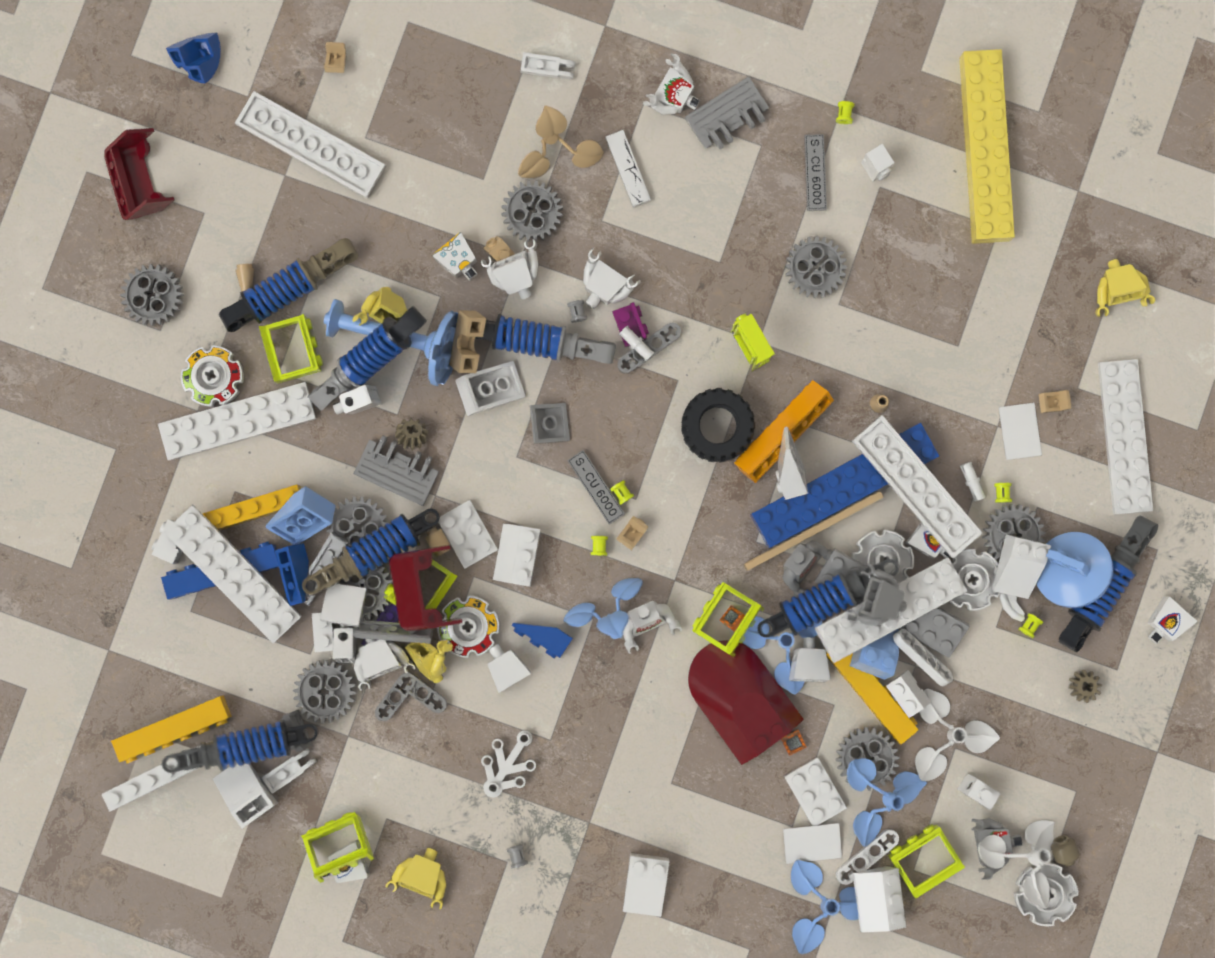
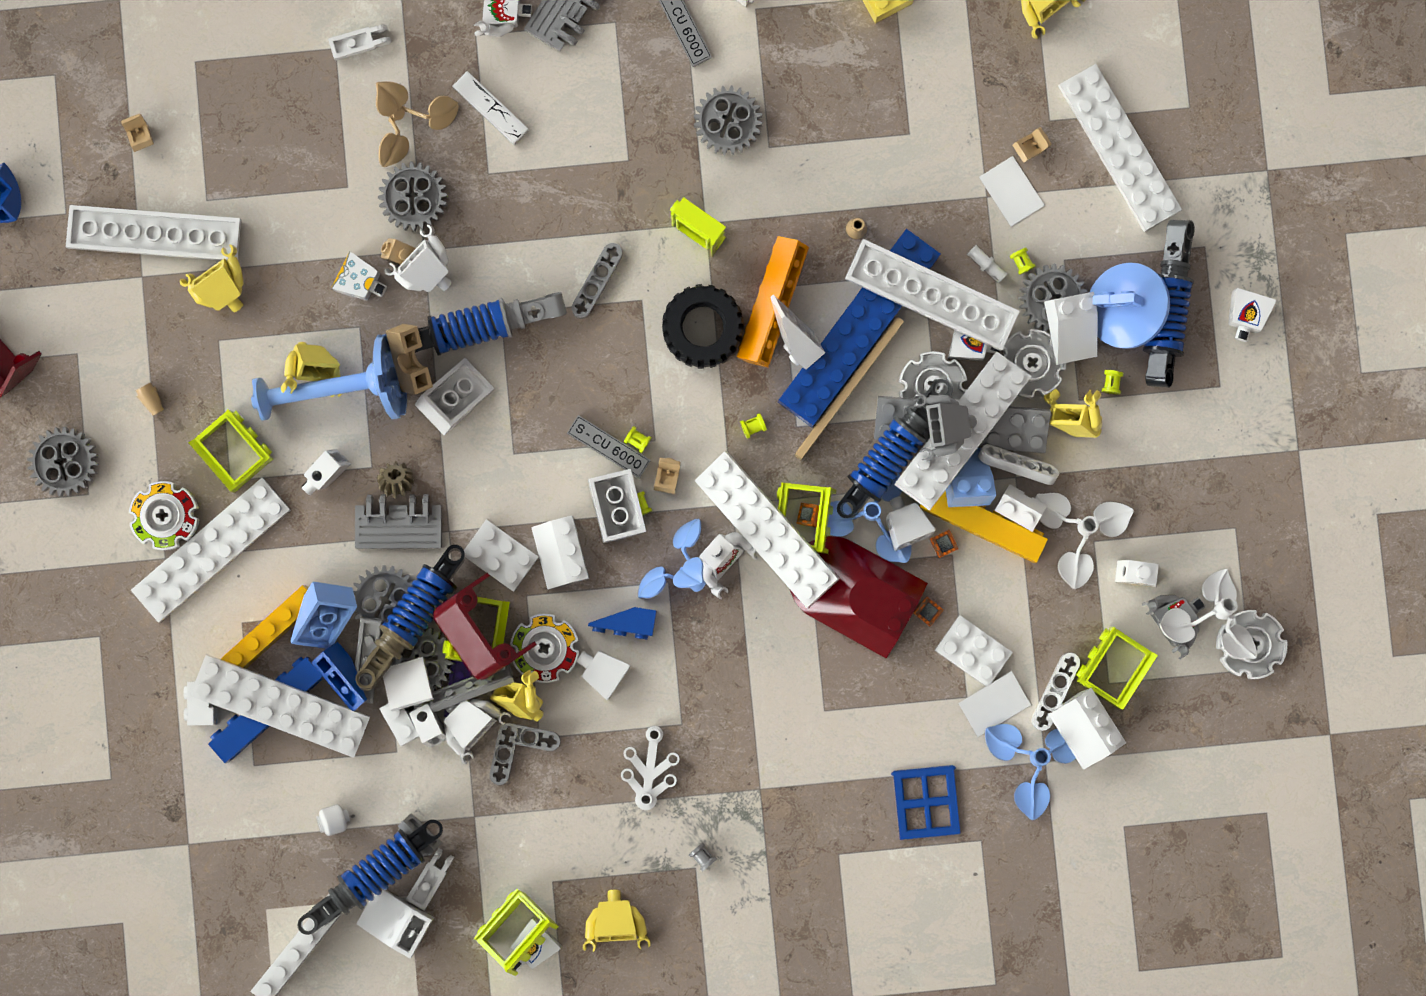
camera: 25 degrees left, 0 degrees up
(170, 729) = (290, 893): yellow brick -> none
(233, 686) = (333, 820): none -> white head
(299, 280) = (205, 378): piece -> none
(307, 690) = (411, 789): light grey gear -> none
(343, 210) = (219, 284): none -> light yellow torso
(368, 356) = (315, 421): piece -> none
(437, 538) = (470, 573): tan brick -> none
(549, 423) = (531, 403): light grey slope -> none
(577, 311) = (506, 277): light grey bush -> none
(580, 538) = (616, 505): none -> white slope
(605, 282) = (521, 235): white torso -> none
(630, 317) = (567, 266): magenta bracket -> none
(636, 343) = (581, 281): white pin -> none
(646, 884) = (846, 824): white slope -> none
(693, 615) = (767, 529): none -> white plate
(719, 897) = (926, 802): none -> blue window
(721, 524) = (753, 425): none -> neon yellow bush
(801, 563) = (852, 426): light grey torso -> none
(832, 693) = (943, 543): none -> tile
(883, 753) = (995, 606): light grey gear -> none
(907, 788) = (1064, 605): light blue plant -> none
(987, 642) = (1076, 419): none -> light yellow torso
(1011, 606) = (1084, 372): white piece -> none
(1064, 850) = (1250, 592): dark tan head -> none
(1092, 686) = (1202, 415): dark tan gear -> none

